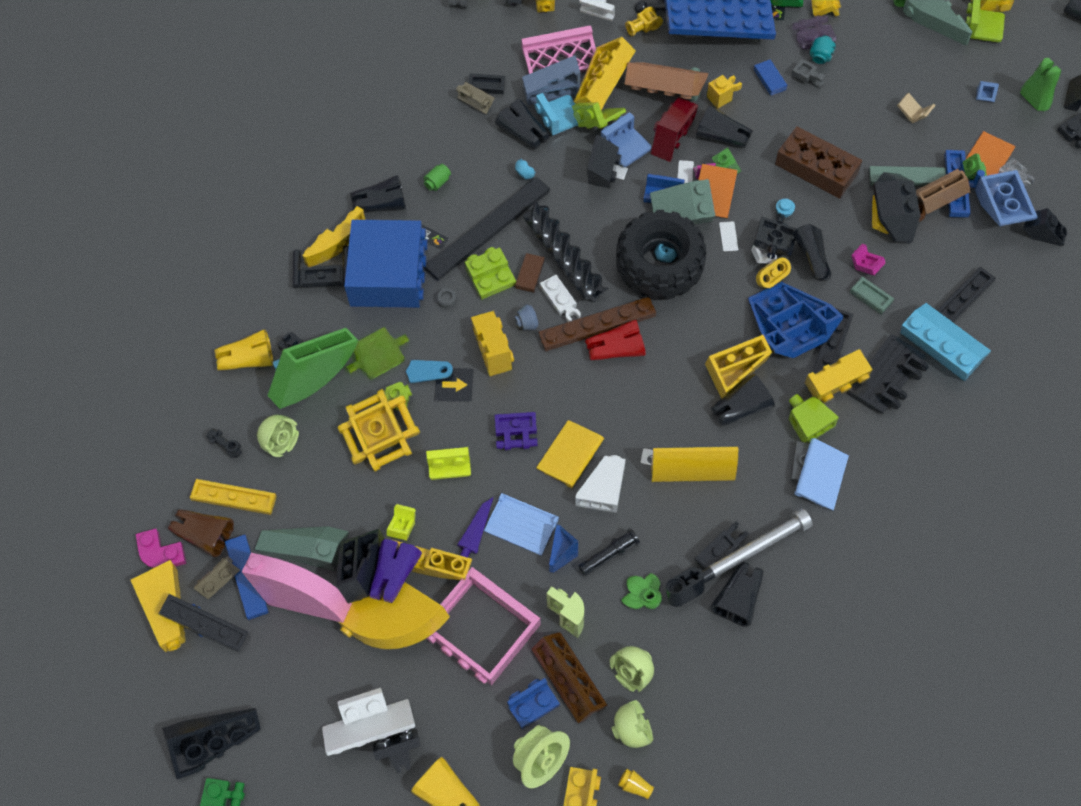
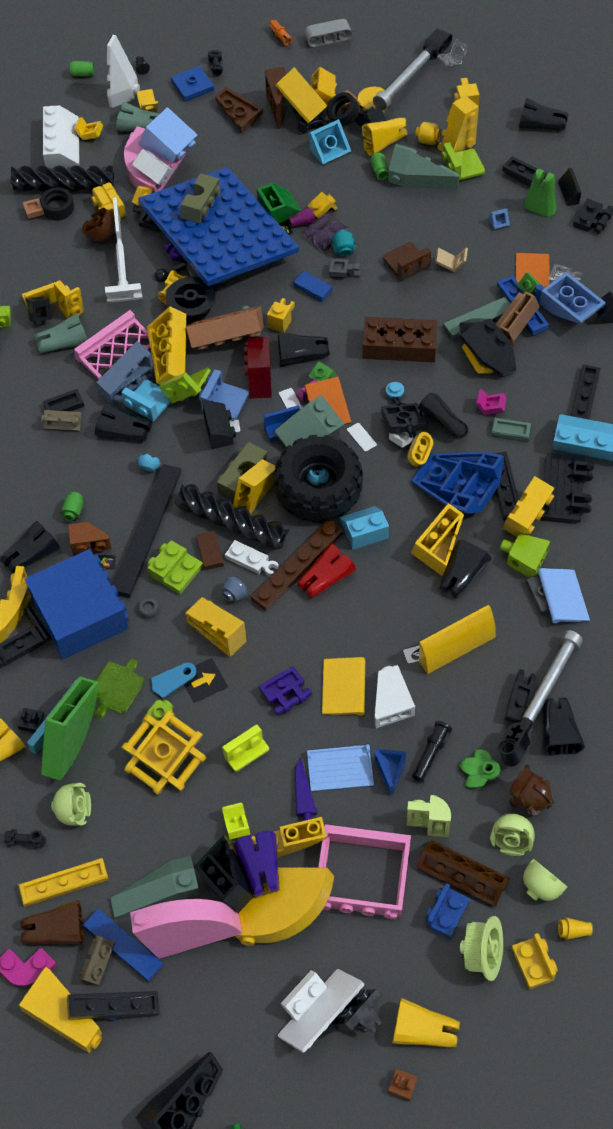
camera: 30 degrees left, 5 degrees down
(431, 211) = (86, 536): none -> dark orange slope
(522, 23) = (63, 335): none -> sand green piece
(600, 234) = (254, 485): none -> yellow slope
(612, 208) = (246, 459): none -> olive arch
(650, 39) = (191, 297): none -> black piece
(672, 638) = (531, 792): none -> reddish brown helmet
(677, 319) = (365, 527): none -> medium azure slope
(800, 10) = (303, 217): none -> magenta cone
(873, 92) = (407, 260): none -> reddish brown bracket
(1037, 52) = (520, 170): none -> black plate

